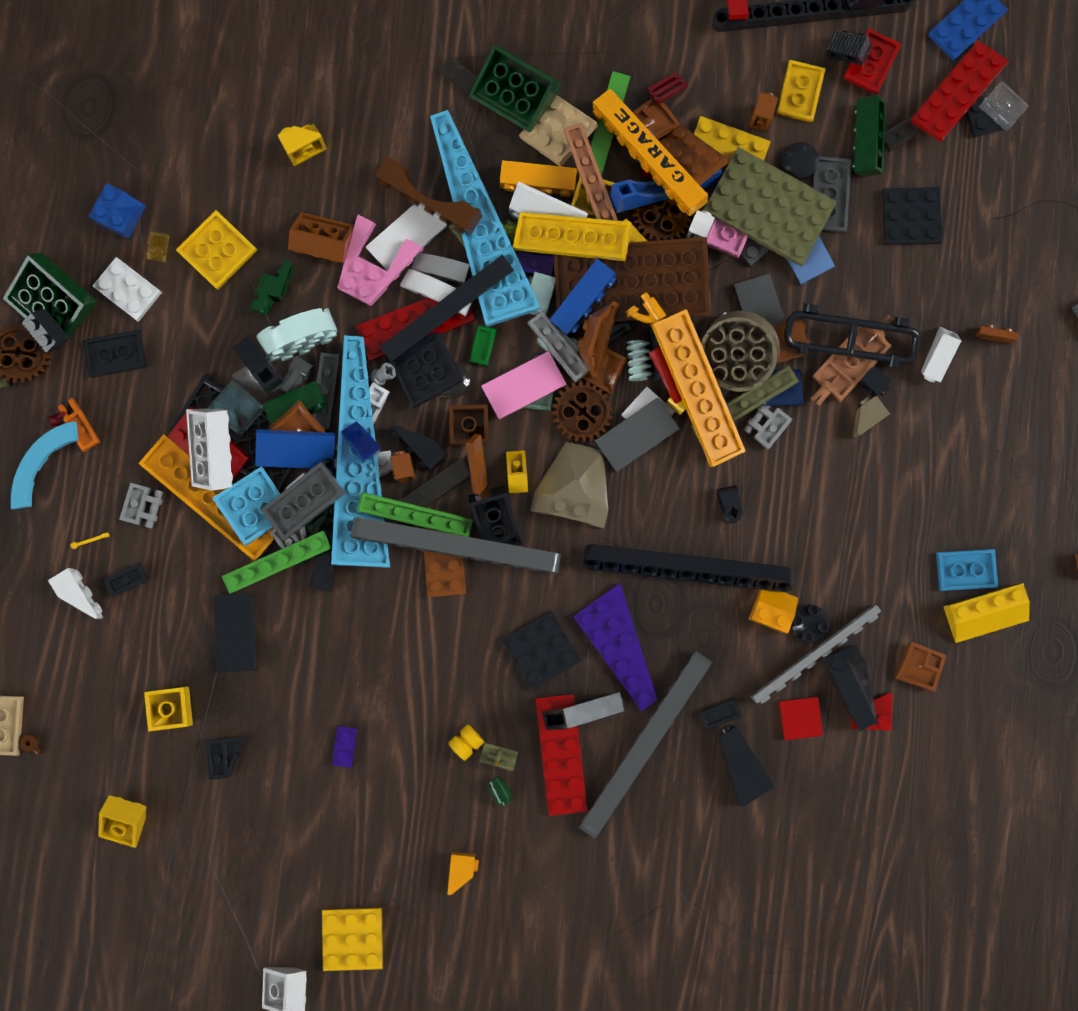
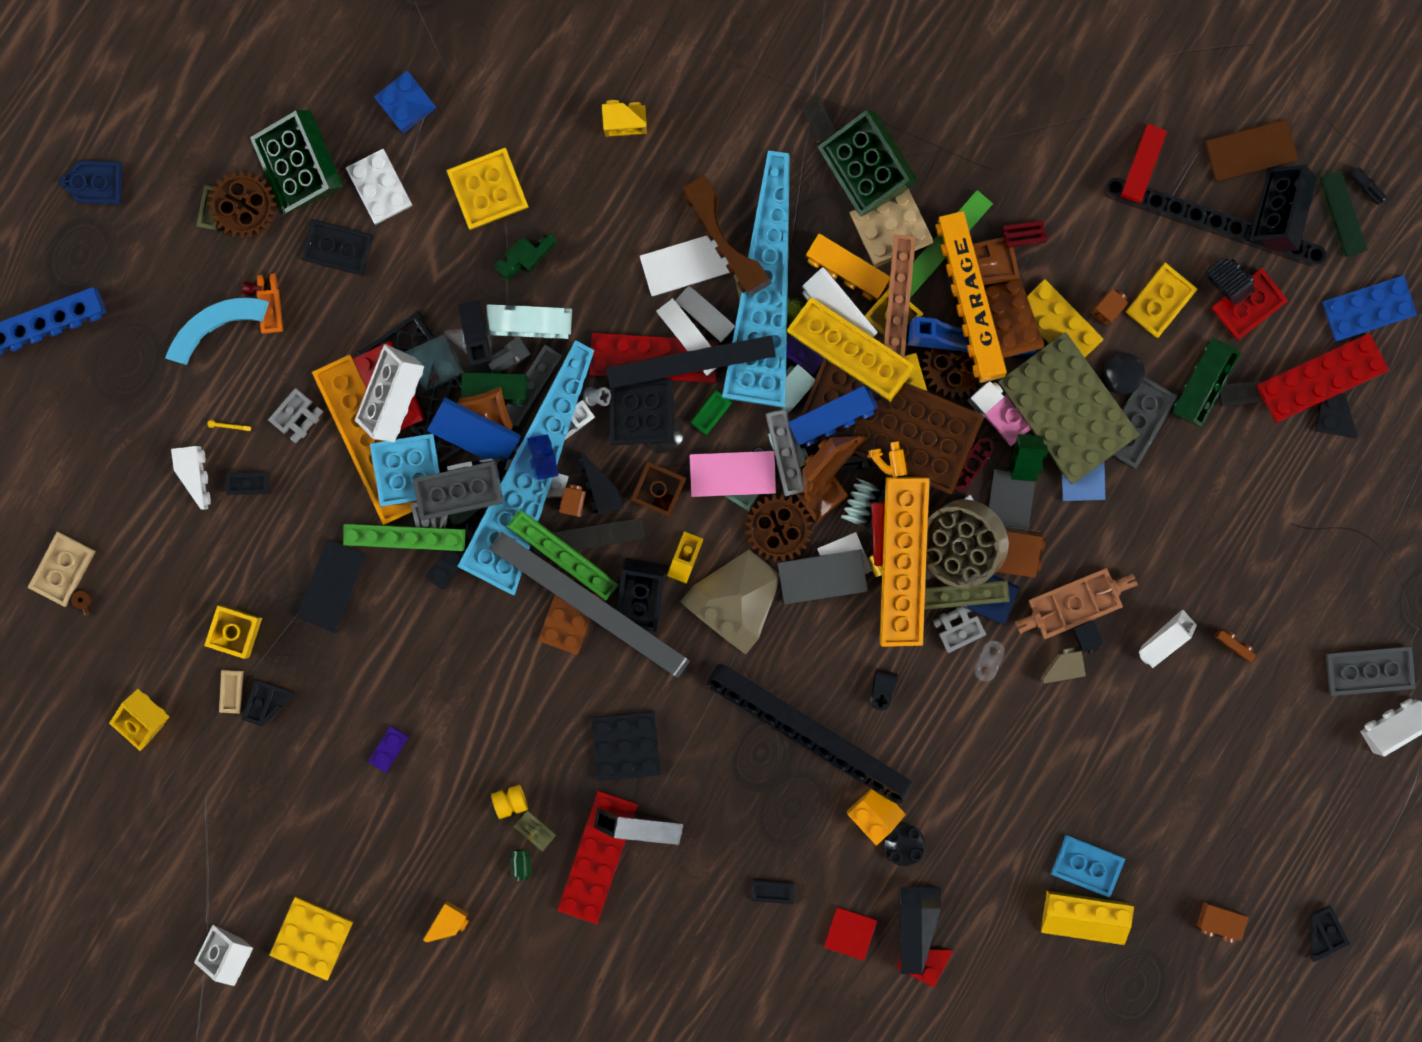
camera: 30 degrees right, 5 degrees up
(45, 330) = (279, 194): black brick -> none
(157, 246) = (429, 159): clear yellow brick -> none
(190, 760) = (231, 691): none -> tan tile
(320, 237) = (599, 225): dark orange slope -> none
(365, 279) = (622, 288): bright pink wing -> none
(476, 464) = (647, 533): dark orange tile -> none
(614, 636) = (704, 765): dark purple wing -> none
(644, 744) = (685, 886): dark grey beam -> none
(716, 303) = (986, 454): none -> dark red beam
(744, 769) = (770, 956): black slope -> none
(756, 260) = (1027, 457): none -> dark green brick
(805, 440) = (990, 661): none -> clear plate
(810, 312) = (1054, 538): black bar -> none
(810, 658) = (904, 877): light grey plate -> none
(912, 216) = (1210, 483): black plate -> none
(921, 667) = (993, 939): dark orange plate -> none
(1004, 106) = (1361, 414): clear tile -> none

